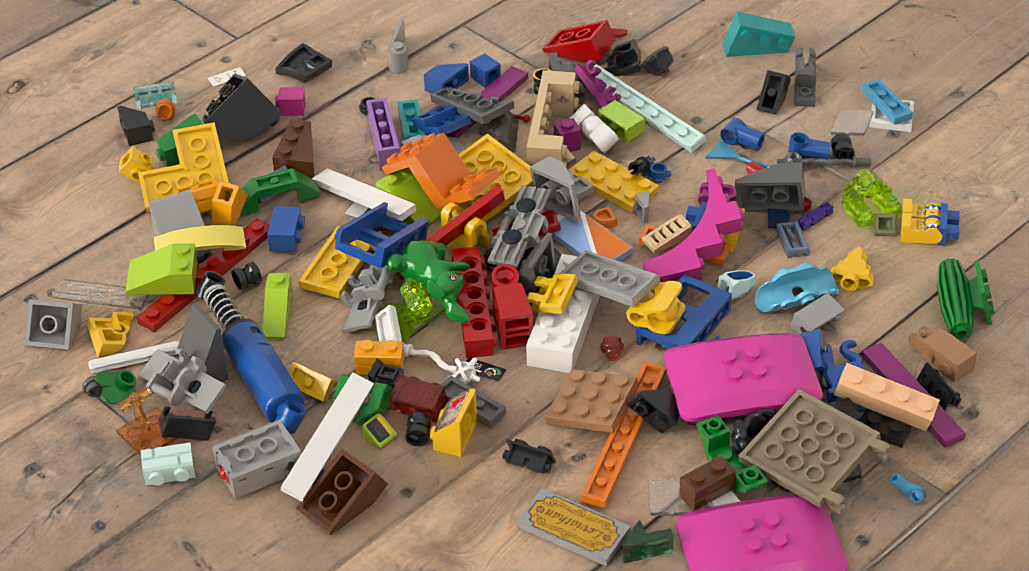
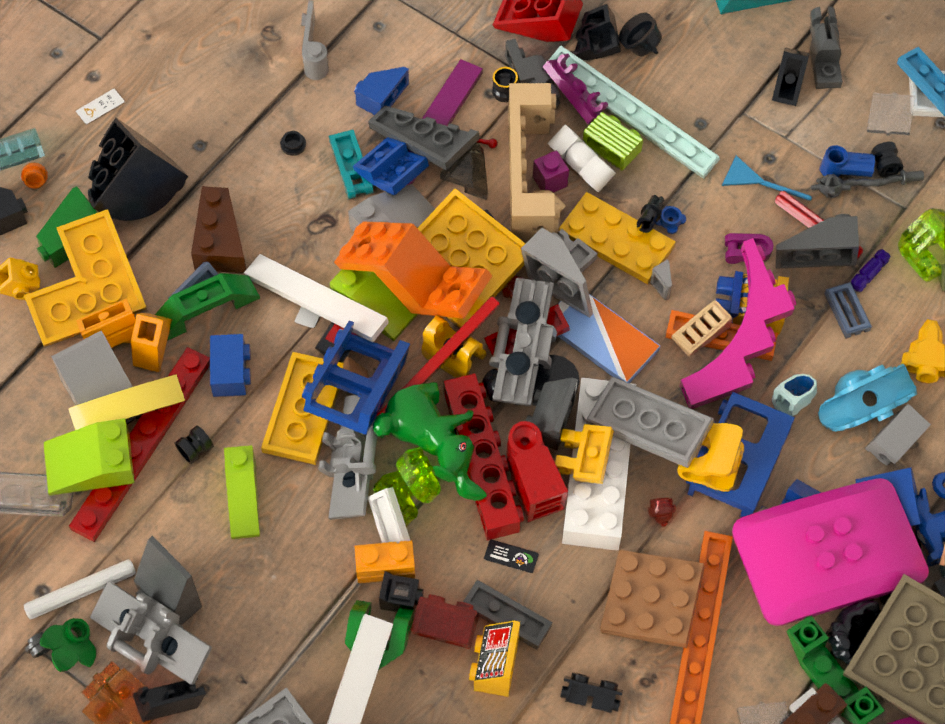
camera: 10 degrees left, 20 degrees up
(109, 333) = (40, 553): yellow slope -> none
(254, 357) = (232, 583): blue piece -> none
(291, 101) = (192, 146): dark pink brick -> none
(303, 63) = (196, 80): black plate -> none
(311, 381) = (306, 607): yellow plate -> none
(378, 431) = (404, 674): slope -> none
(382, 130) = (322, 194): medium lavender brick -> none
(418, 429) = (452, 667): black wheel -> none
(463, 371) = (490, 570): white piece -> none
(484, 70) = (428, 70): blue brick -> none
(605, 217) = (617, 298): orange tile -> none
(656, 407) = (735, 608): black slope -> none
(737, 132) = (756, 145): blue piece -> none
(777, 216) = (824, 277): dark blue tile -> none

